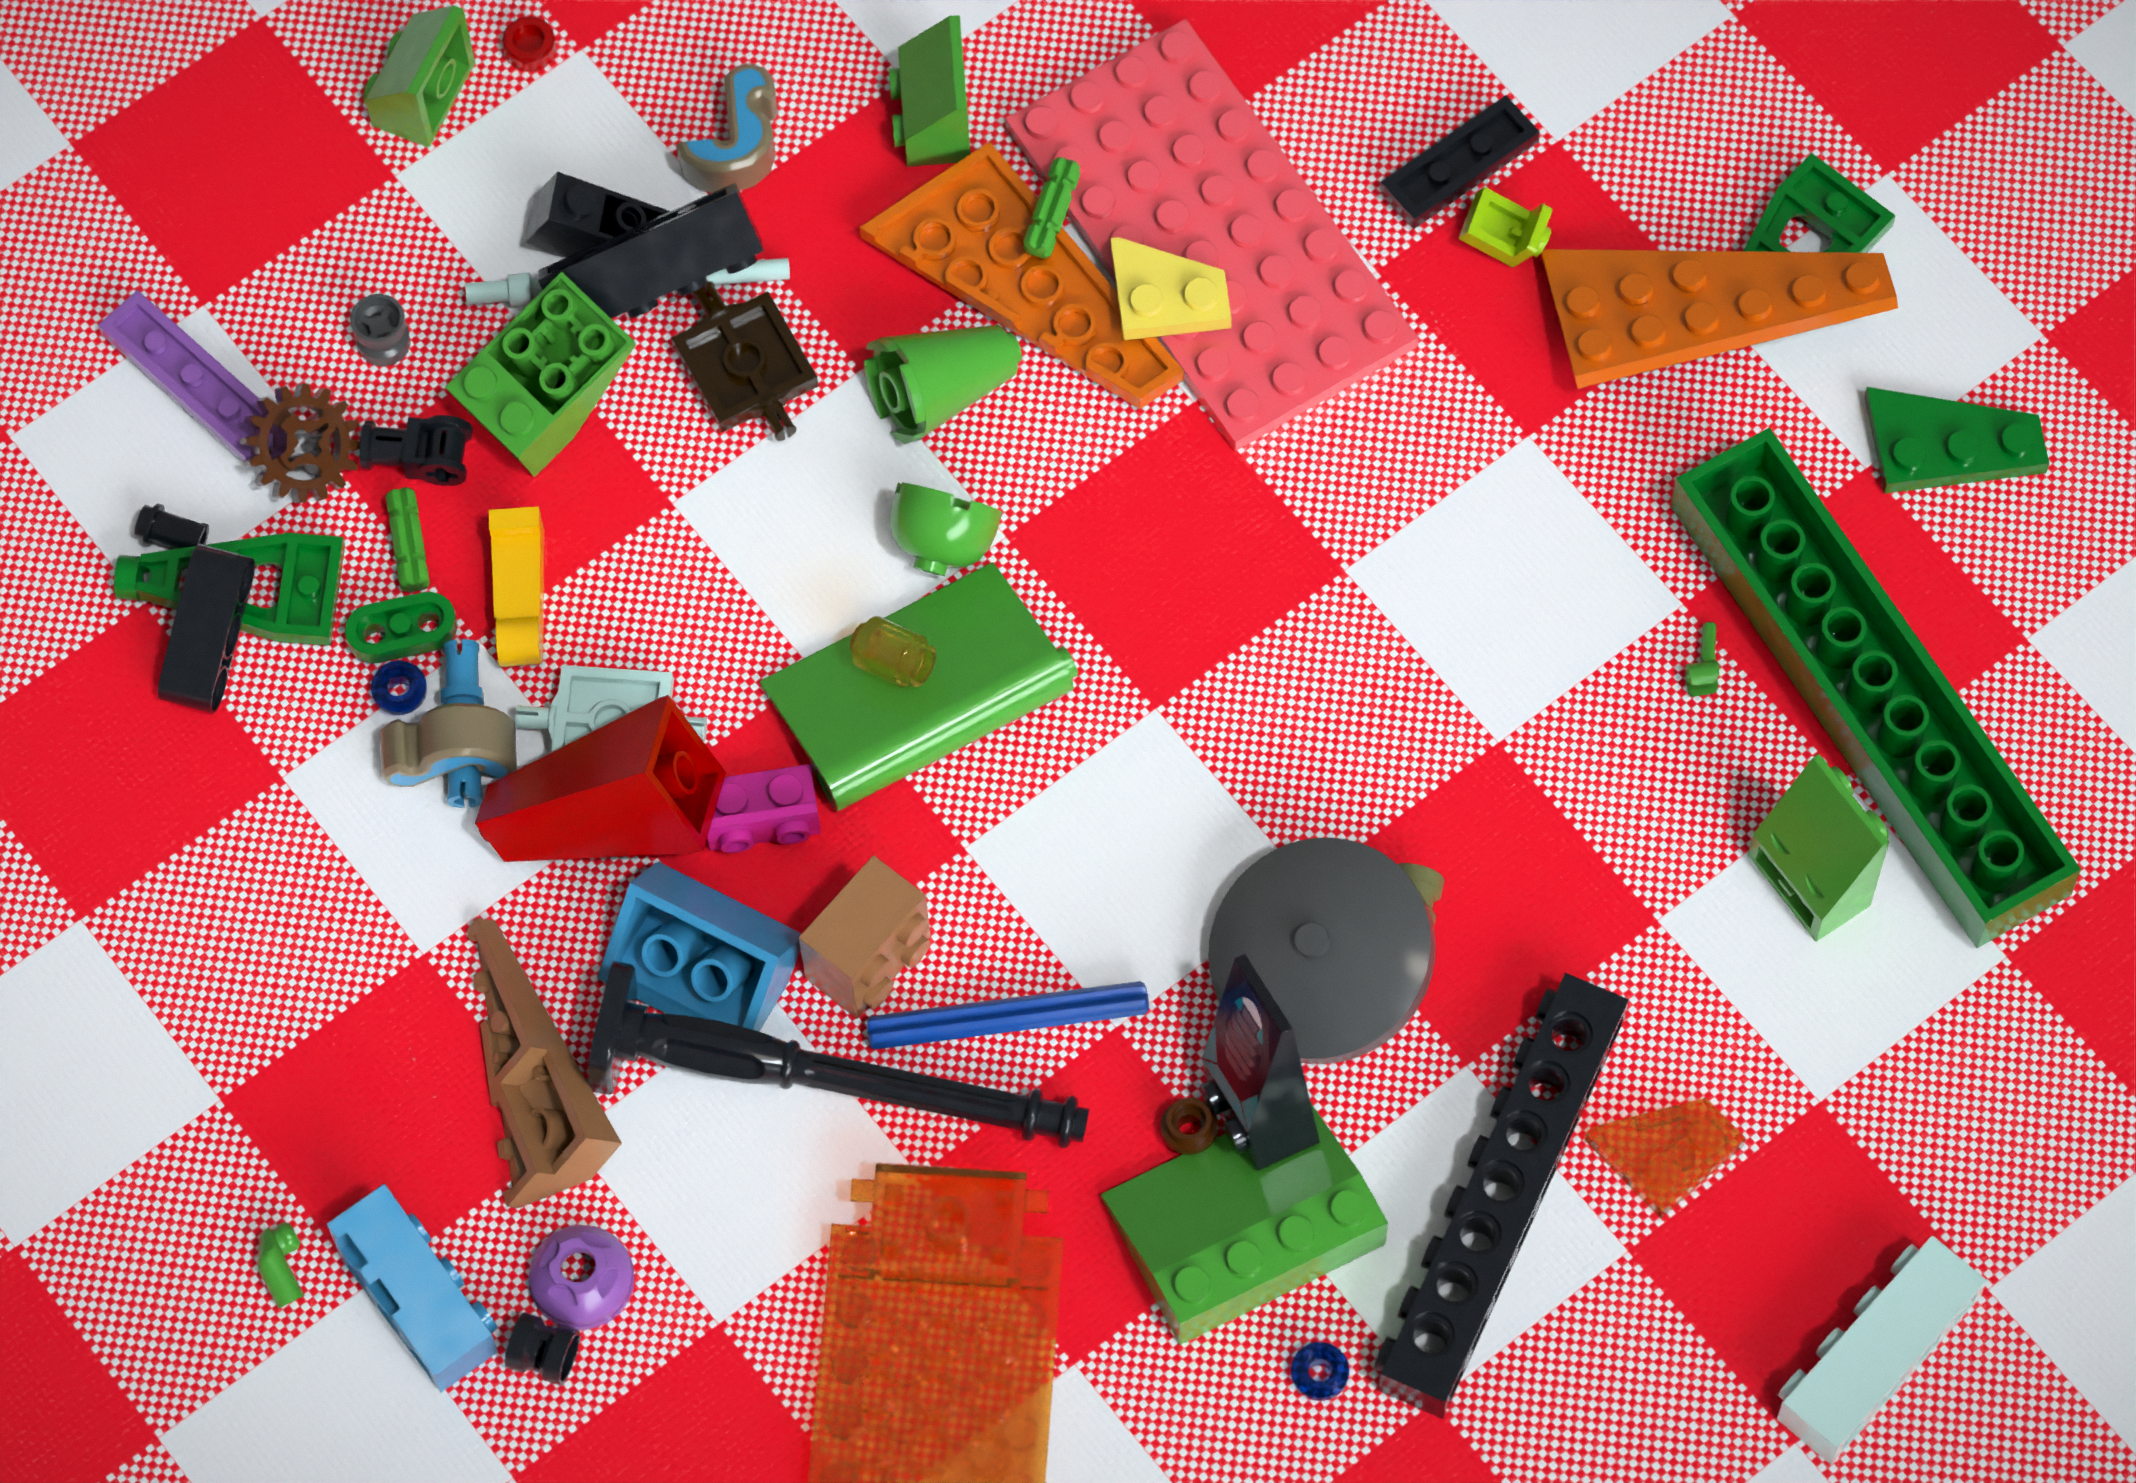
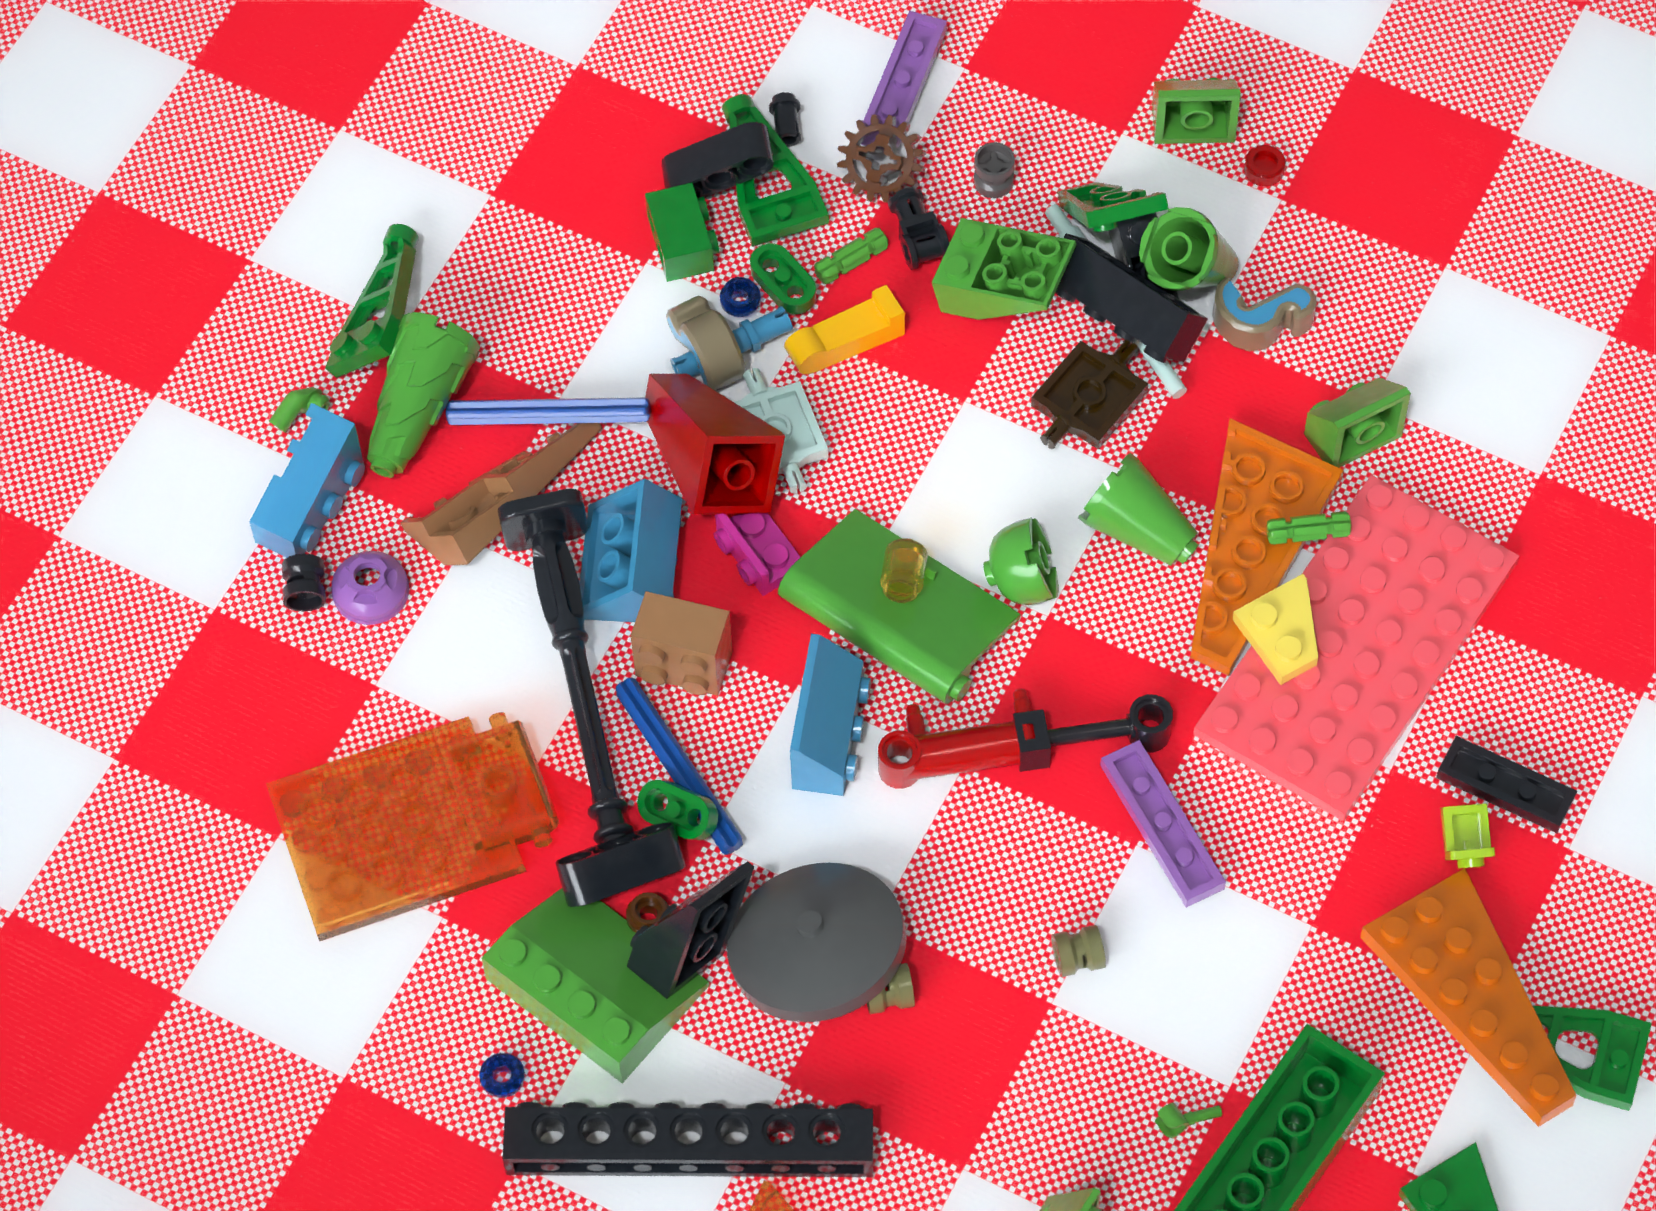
camera: 65 degrees right, 5 degrees down
(244, 1133) = (369, 341): none -> green plate
(271, 714) = (680, 231): none -> green brick
(329, 1092) = (420, 379): none -> bright green cone
(450, 968) = (548, 411): none -> axle
(520, 226) = (1104, 204): none -> green wing
(642, 185) = (1186, 251): none -> bright green cone
(1039, 823) = (828, 719): none -> dark azure slope
(1080, 1037) = (681, 809): none -> green plate
(1122, 1124) = (620, 864): none -> black beam
(1165, 636) = (1017, 742): none -> piece
(1339, 527) = (1162, 823): none -> medium lavender plate
(1458, 681) = (1078, 951): none -> olive wheel

